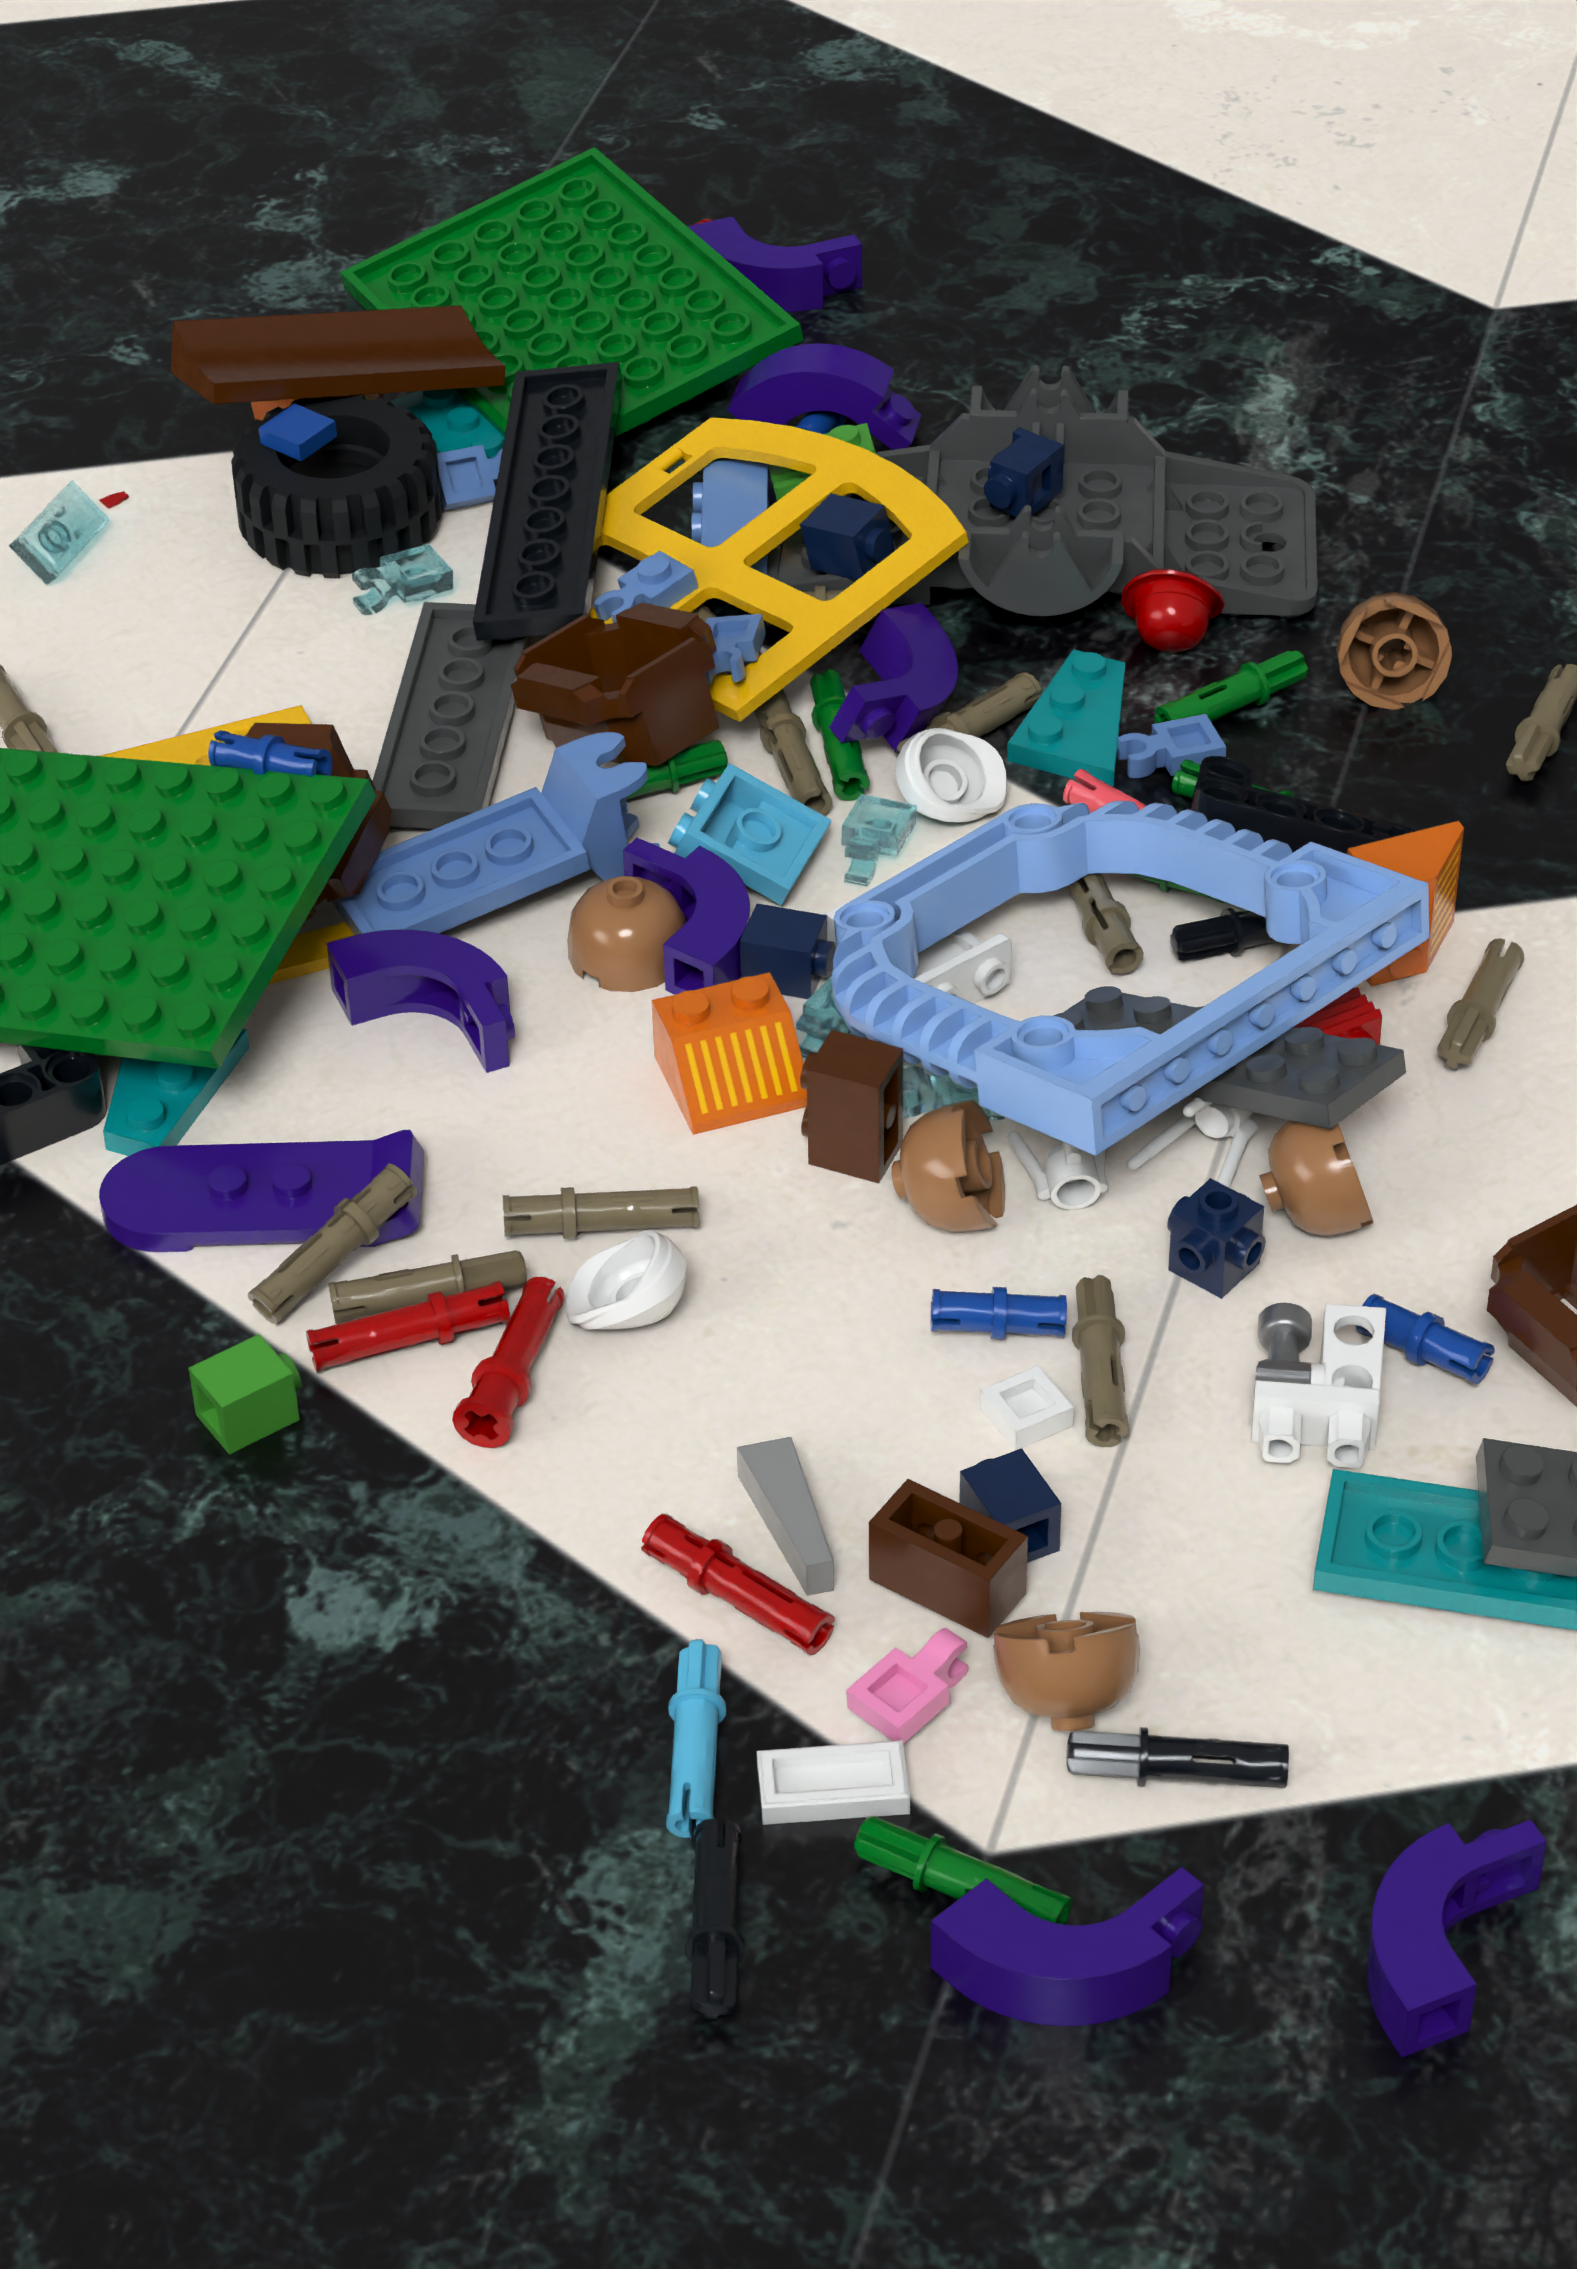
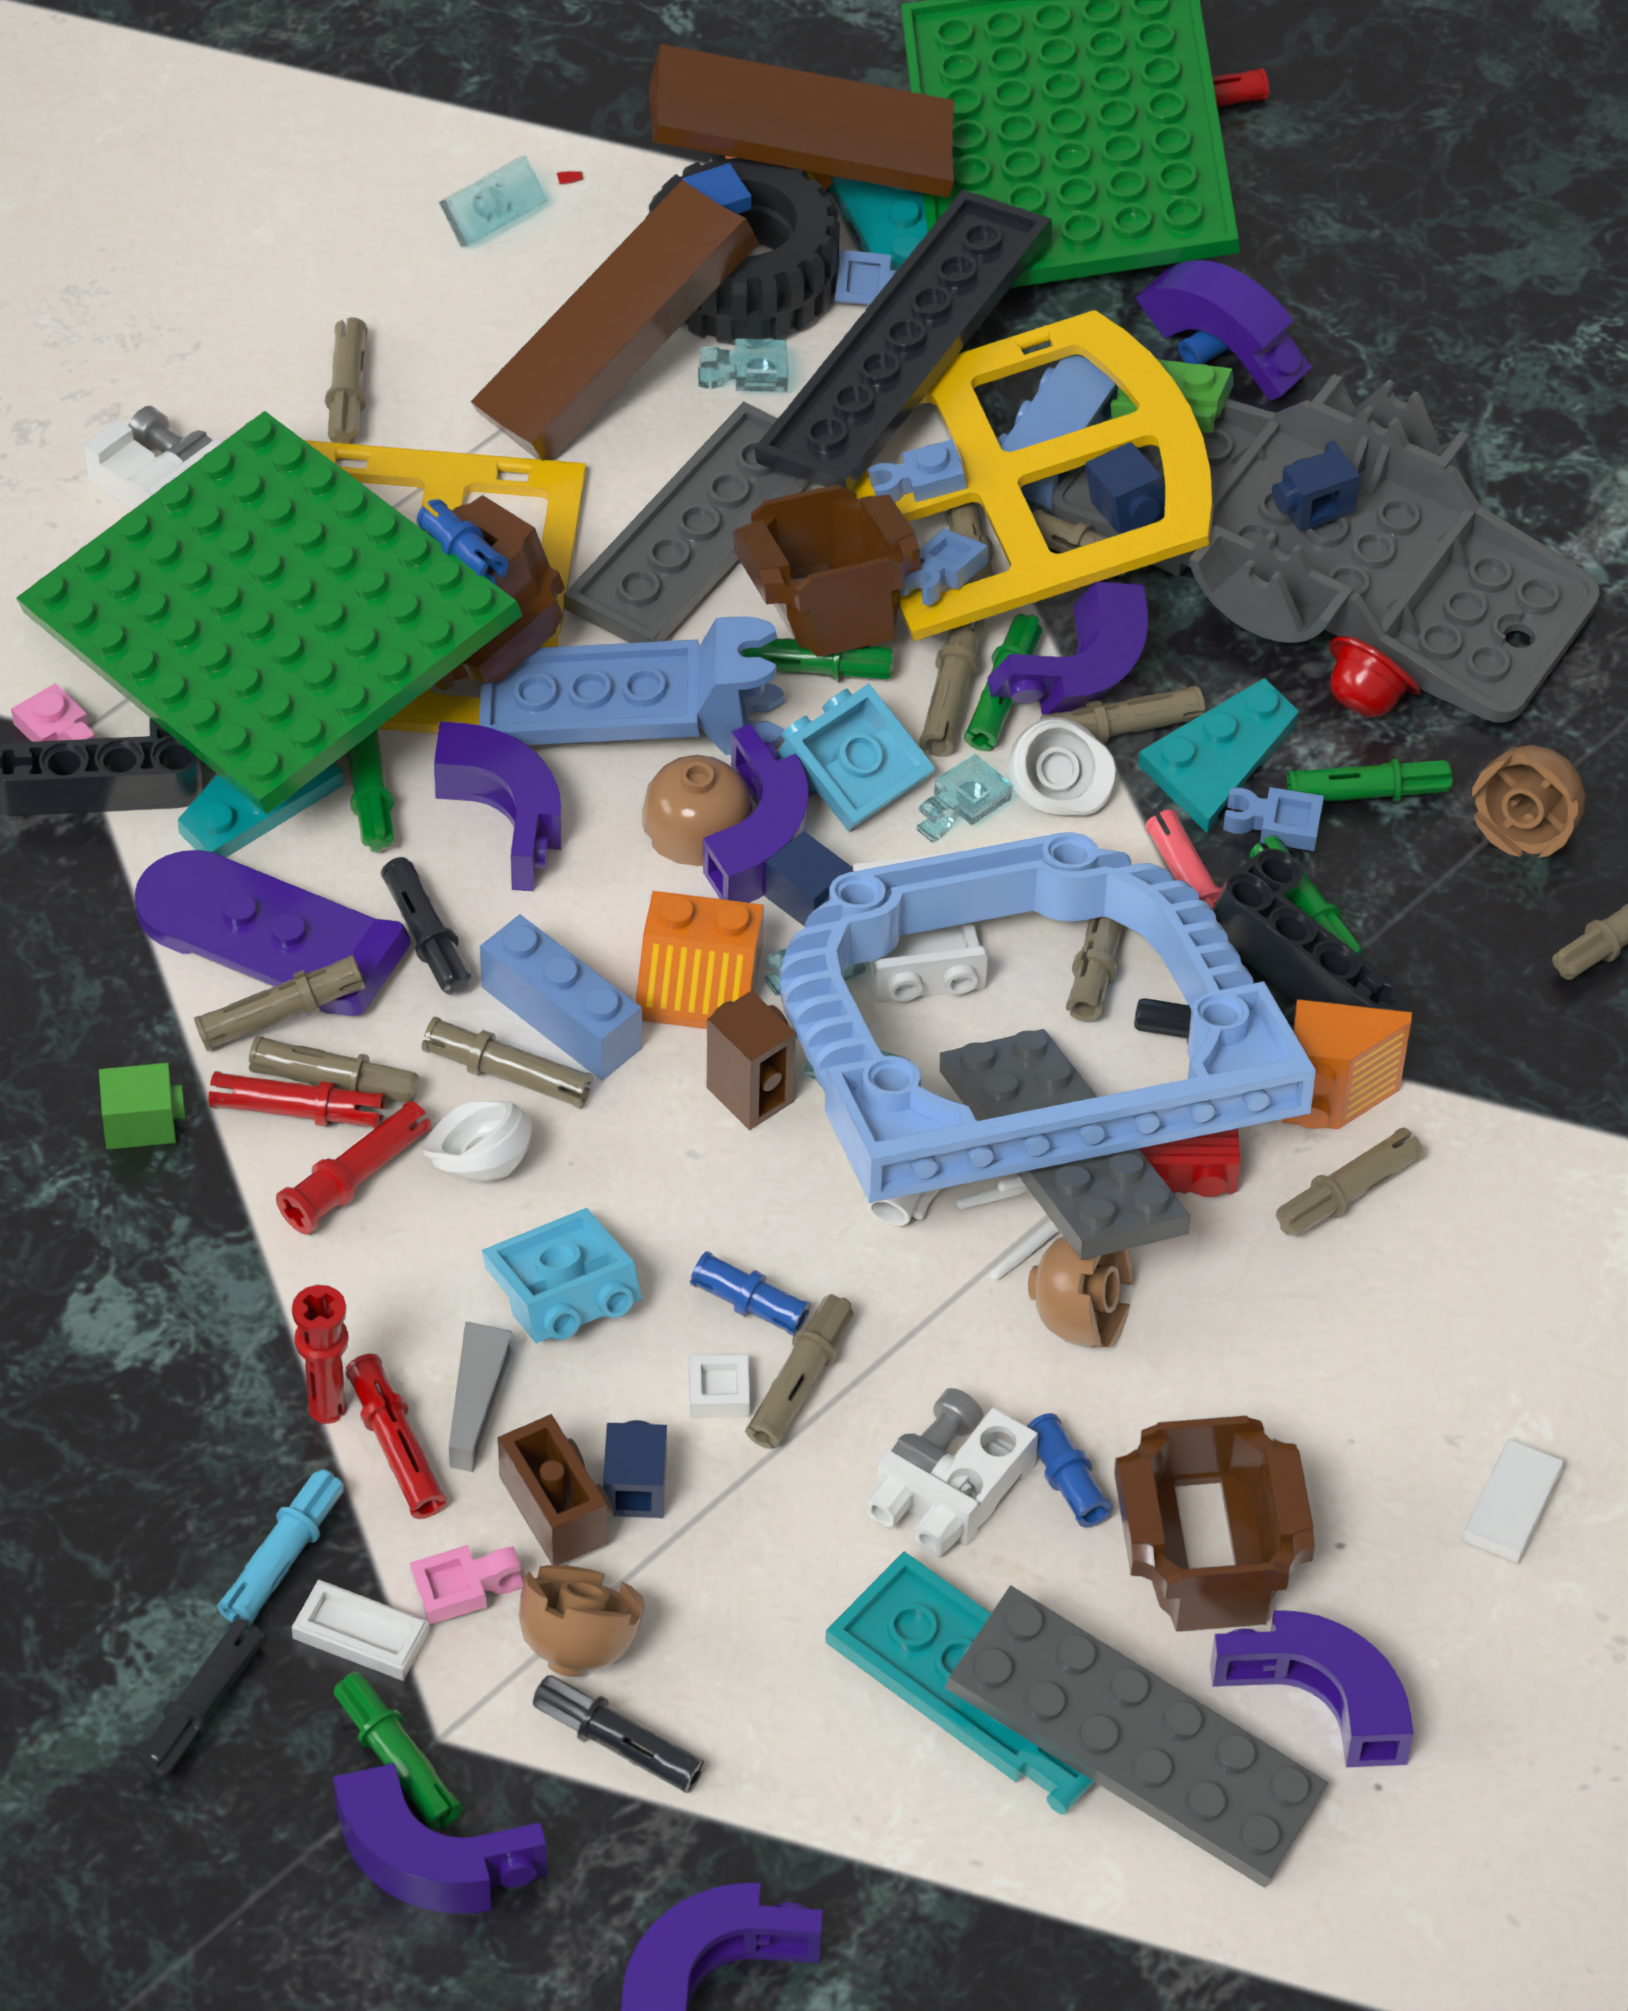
camera: 25 degrees right, 10 degrees up
(263, 569) = (615, 321): none -> reddish brown arch
(294, 1042) = (371, 797): none -> green axle
(448, 1136) = (434, 940): none -> black axle
(616, 1131) = (561, 997): none -> medium blue brick
(633, 1499) = (321, 1342): none -> red pin
(789, 275) = (1280, 158): dark purple arch -> none
(805, 1368) = (564, 1276): none -> medium azure plate
(949, 1169) = (794, 1153): medium nougat cylinder -> none
(1215, 1237) = (962, 1305): dark blue brick -> none

